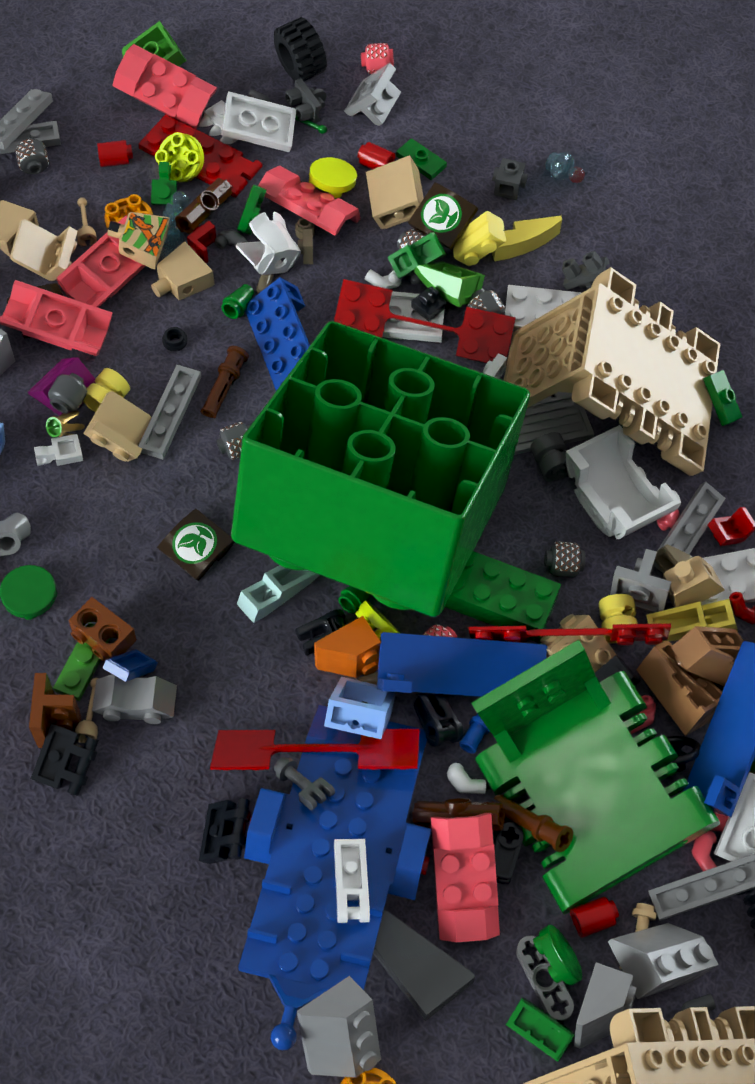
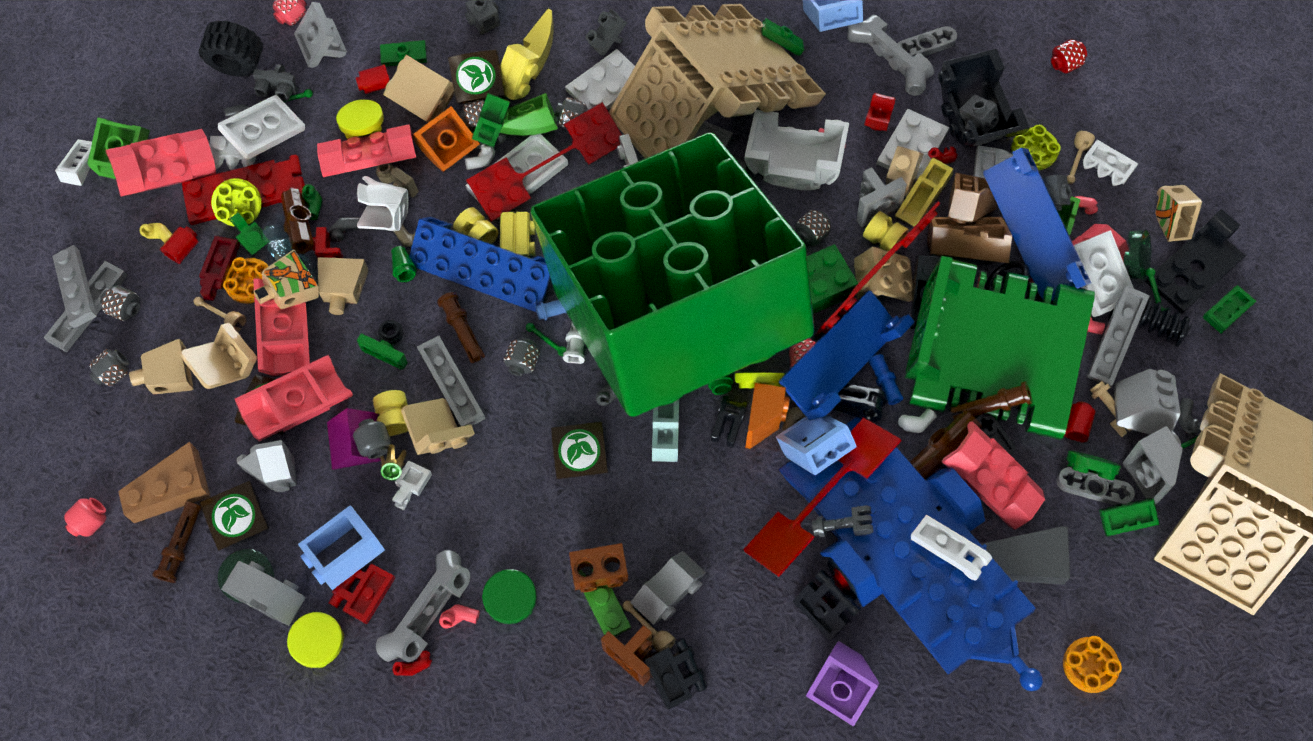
camera: 45 degrees left, 5 degrees up
(110, 130) = (155, 231): none -> light yellow arm
(112, 43) = (77, 174): none -> white slope
(119, 188) = (217, 265): none -> dark red hinge
(130, 665) = (642, 569): blue tile -> none
(152, 345) = (383, 351): none -> green plate
(167, 895) = (844, 684): none -> medium lavender slope
(234, 203) = (313, 200): none -> green arm
(251, 208) = (334, 192): green tile -> none
(314, 317) = (473, 224): none -> light yellow wheel
(340, 1031) = (1050, 638): light grey slope -> none
(371, 241) = (445, 139): none -> orange slope
(429, 303) = (534, 145): black tile -> none
(669, 556) = (879, 162): dark tan slope -> none
(693, 519) = (857, 138): light grey plate -> none

